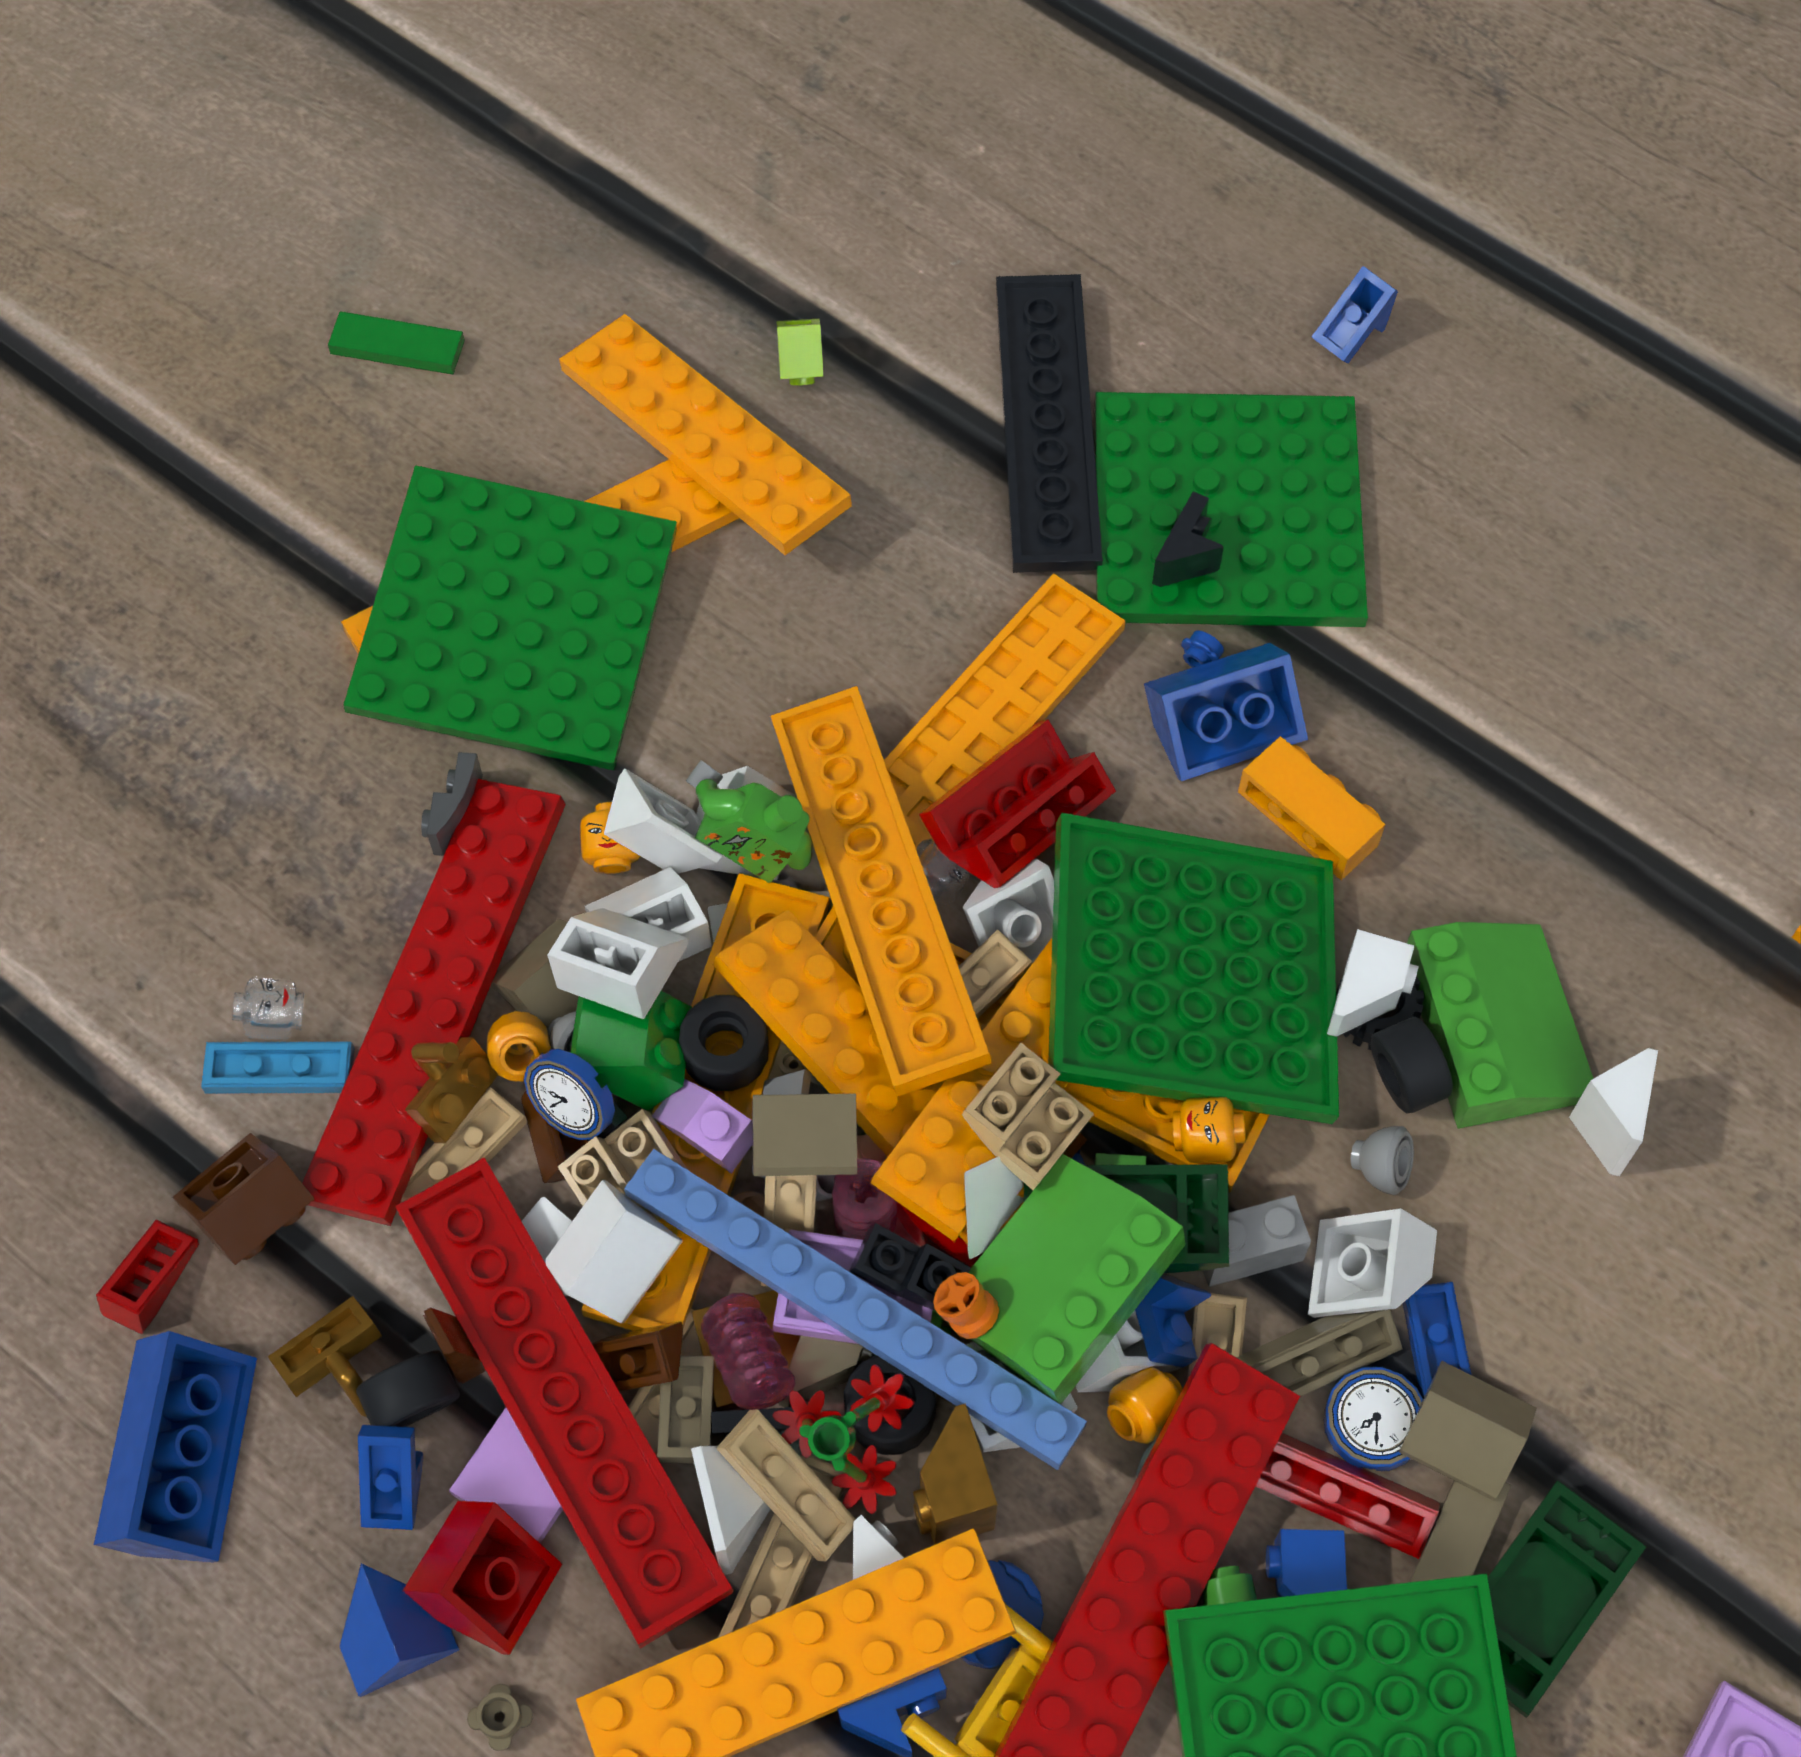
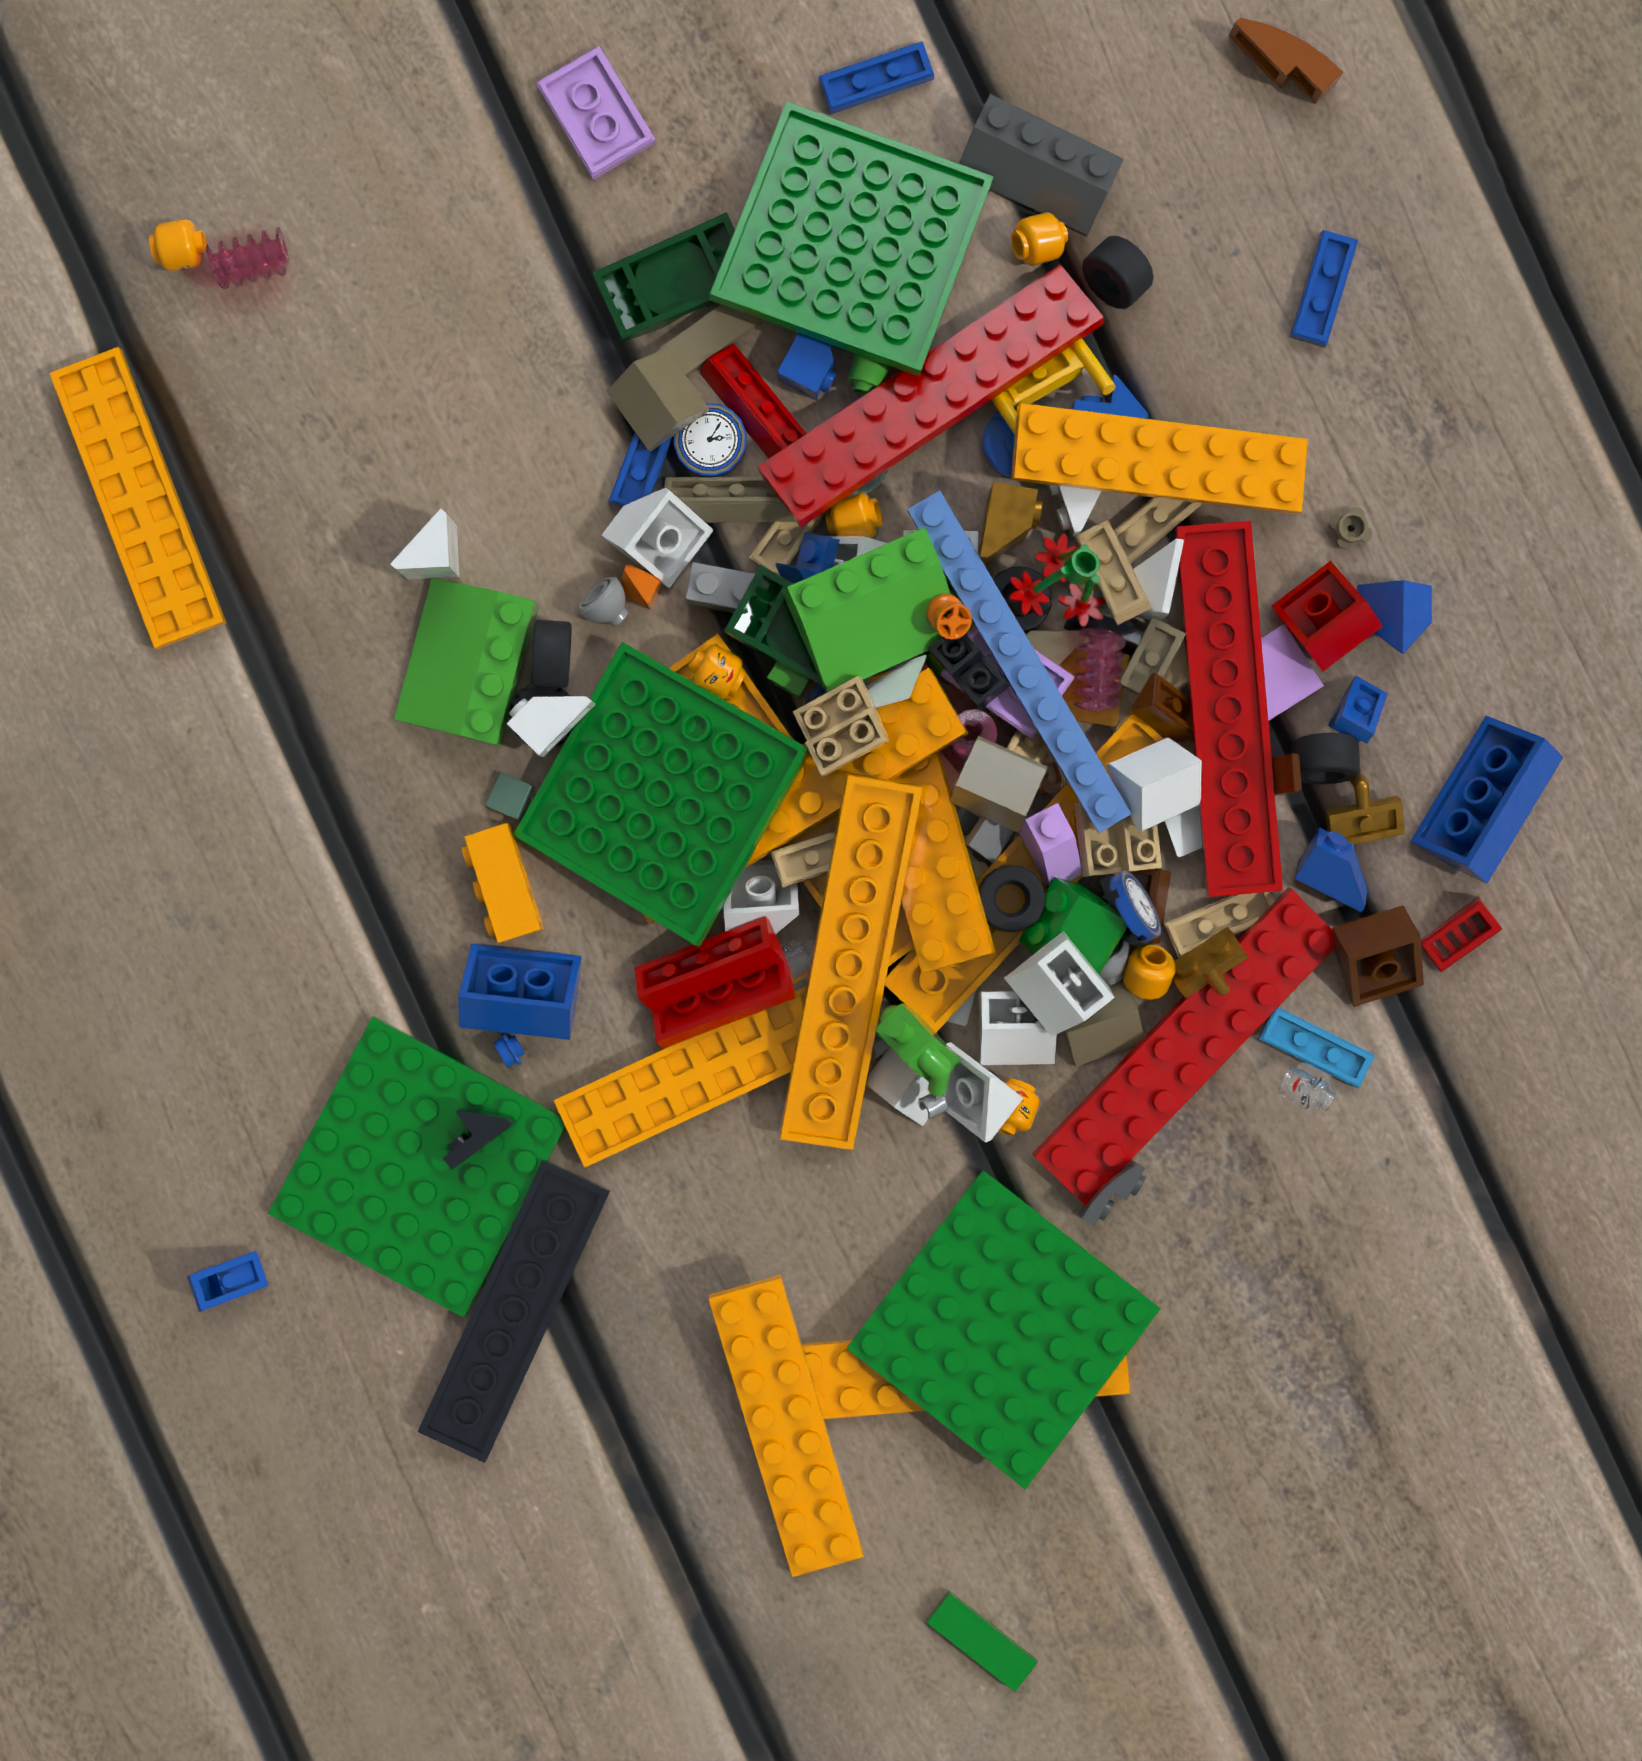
camera: 155 degrees left, 25 degrees up
(340, 1266) = (1333, 869): none -> blue slope
(800, 351) = (675, 1466): lime brick -> none
(1352, 1198) = (640, 586): none -> orange slope
(1359, 903) = (510, 796): none -> sand green slope

